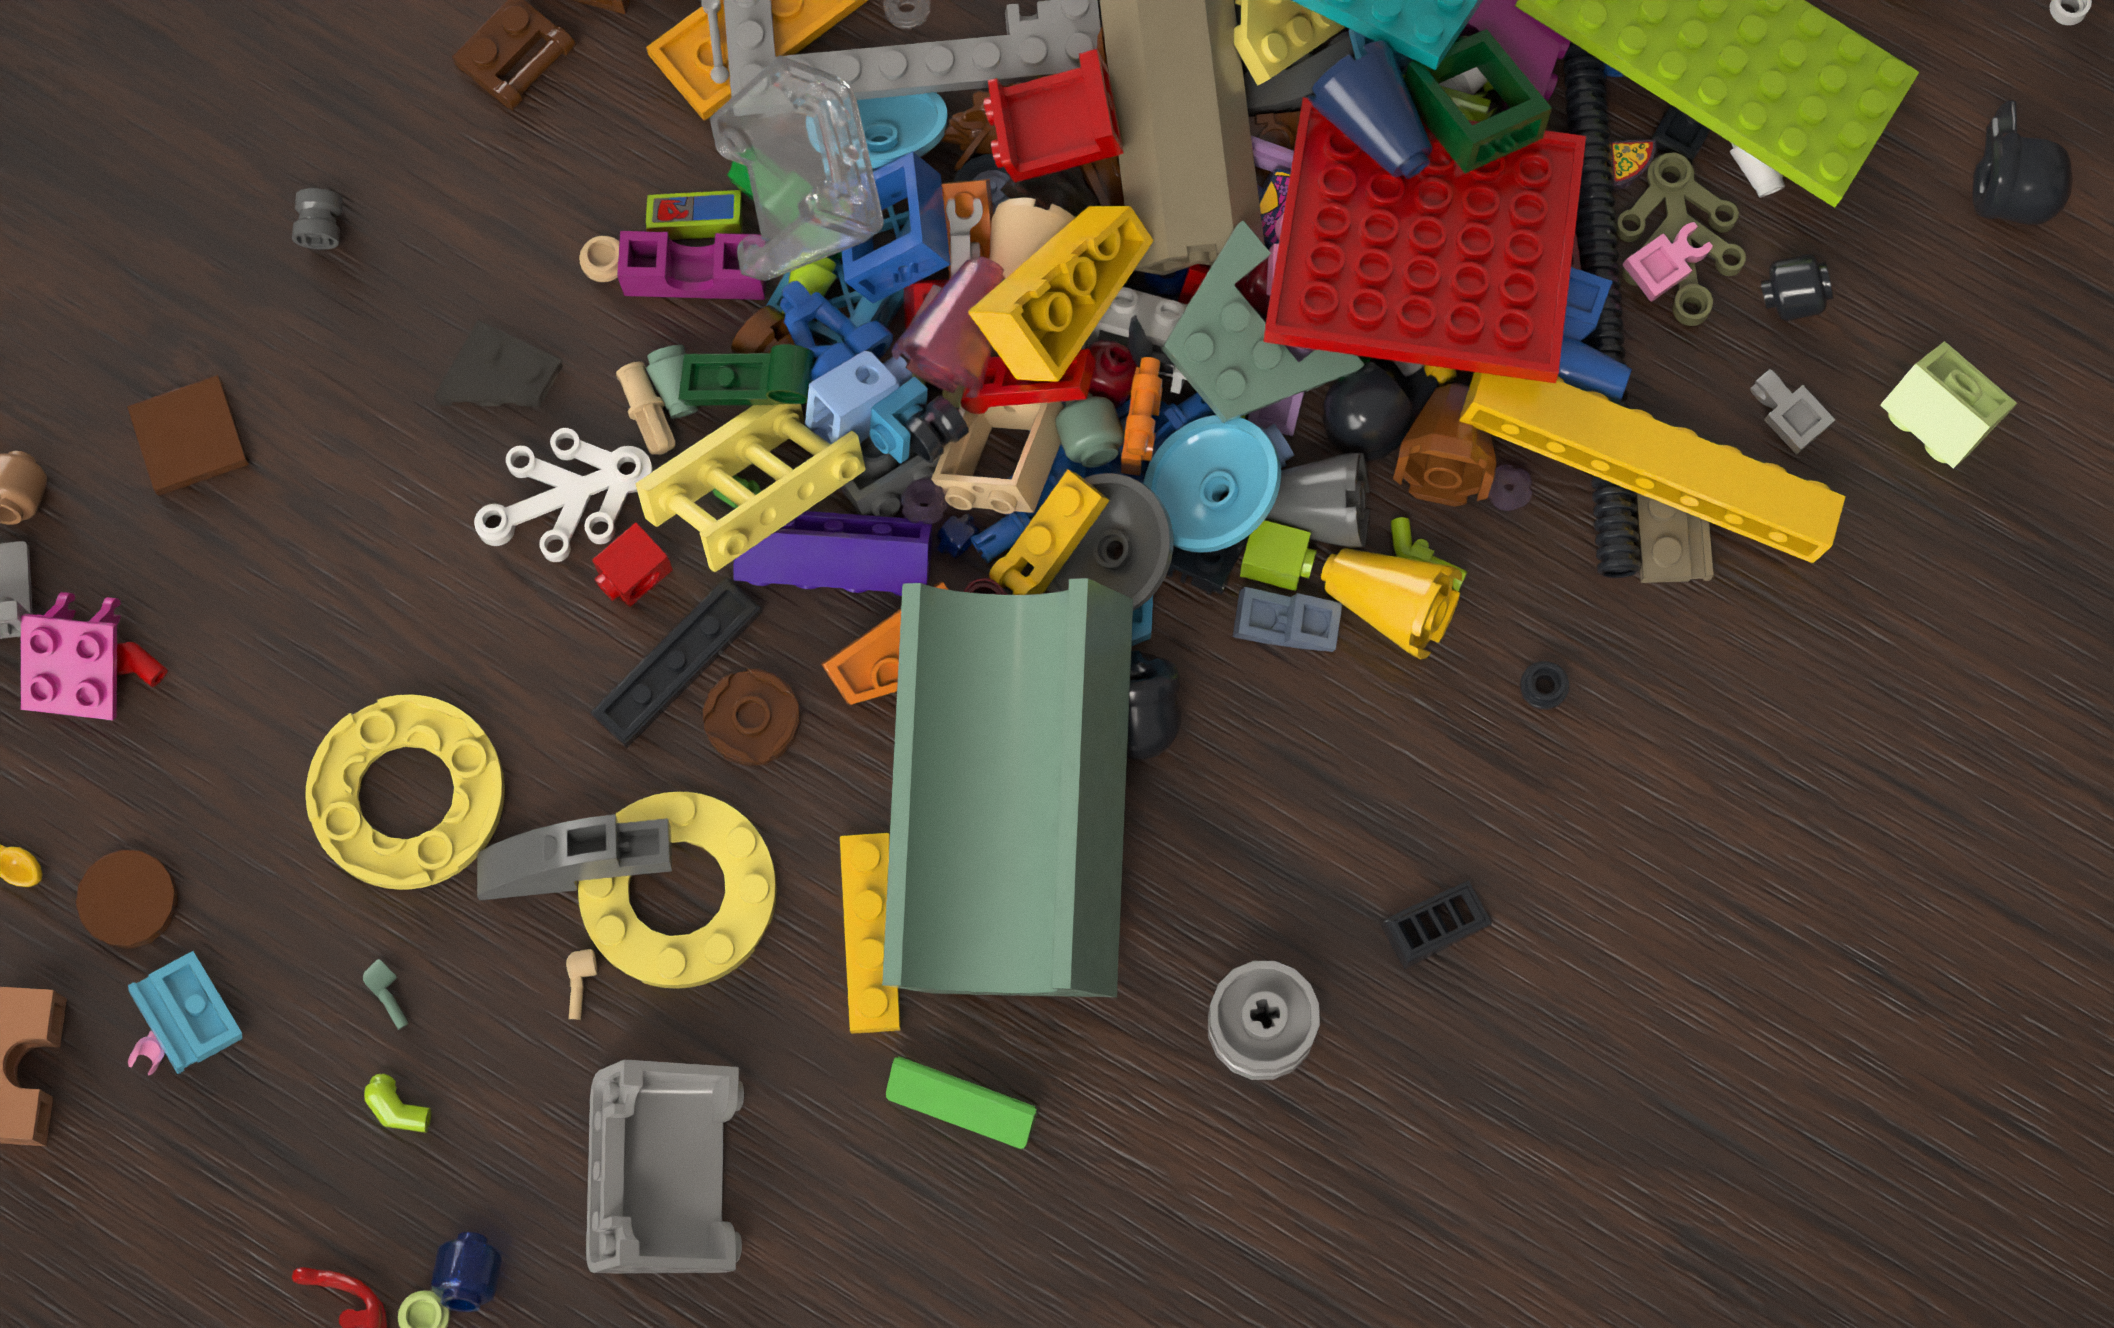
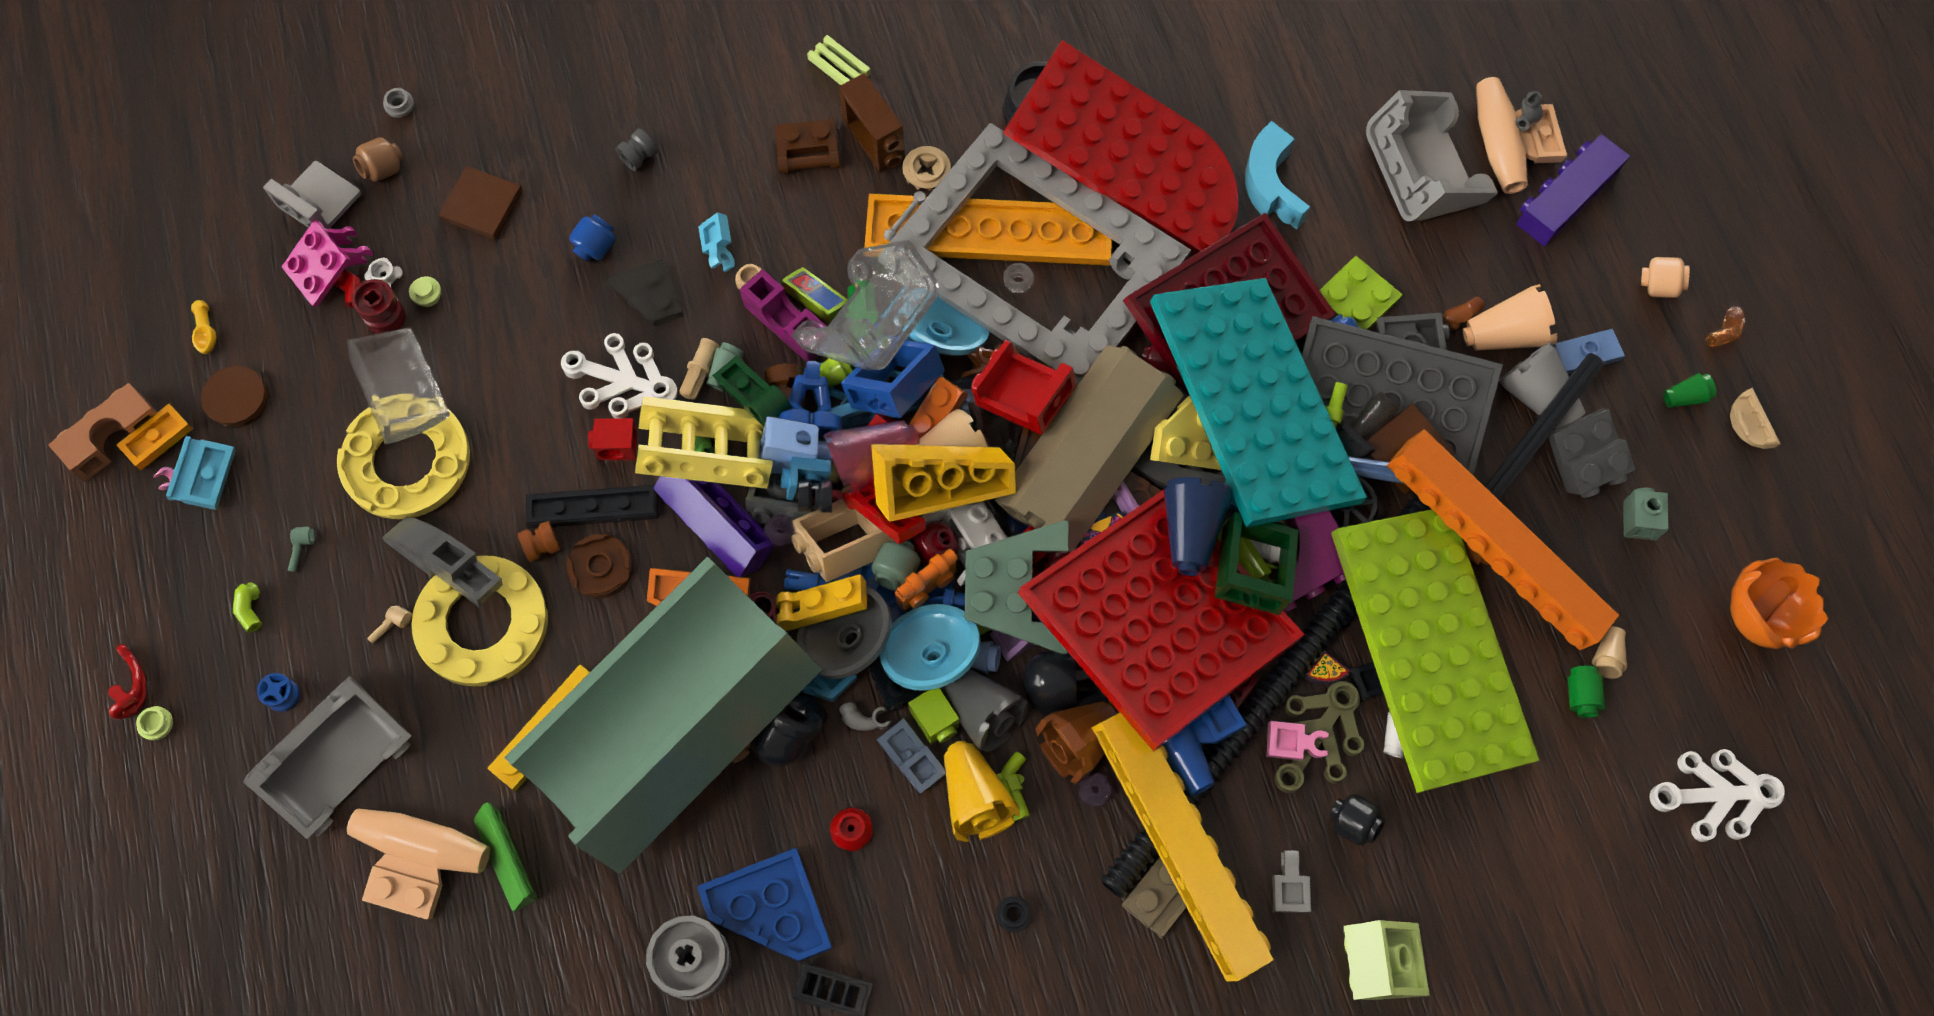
camera: 40 degrees right, 5 degrees down
(82, 1022) = (154, 437): none -> light orange plate
(148, 603) = (383, 266): none -> white plate
(201, 651) = (378, 306): none -> dark red wheel
(230, 590) = (425, 291): none -> yellowish green plate
(317, 717) = (397, 384): none -> clear slope
(371, 363) = (592, 238): none -> blue head
(466, 1272) = (191, 719): clear blue head -> none
(516, 247) = (714, 239): none -> medium azure plate
(523, 1157) = (270, 691): none -> blue wheel
(661, 747) = (539, 541): none -> dark orange wheel
(866, 1187) = (414, 852): none -> light nougat plate
(957, 535) = (784, 560): clear blue plate -> none
(960, 245) = (920, 411): light grey plate -> none
(1142, 347) = (959, 543): black bar -> none
(1197, 634) = (855, 720): none -> light grey arm
(1292, 898) = (769, 906): none -> blue plate
(1293, 763) = (852, 840): none -> red plate
(2020, 175) = (1545, 869): black piece -> none

